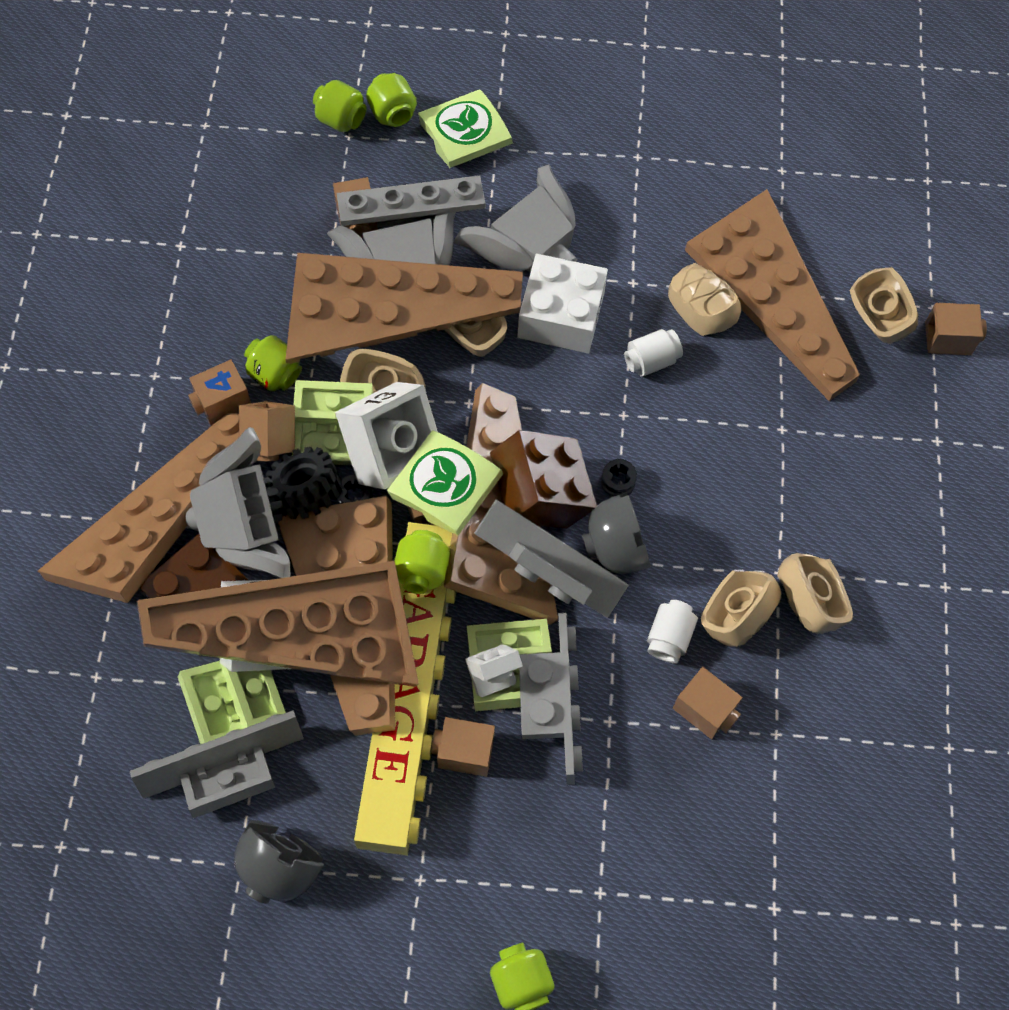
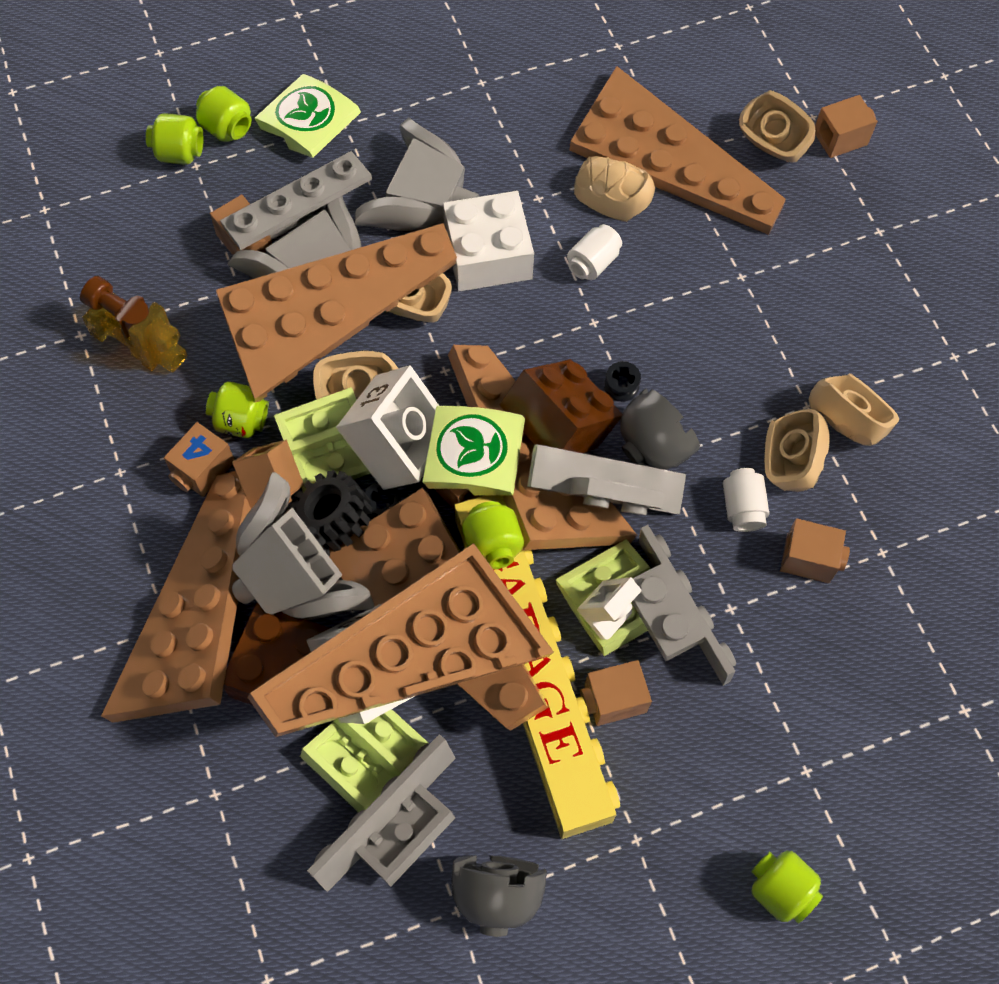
camera: 25 degrees left, 0 degrees up
(226, 258) = (132, 323): none -> clear yellow hips

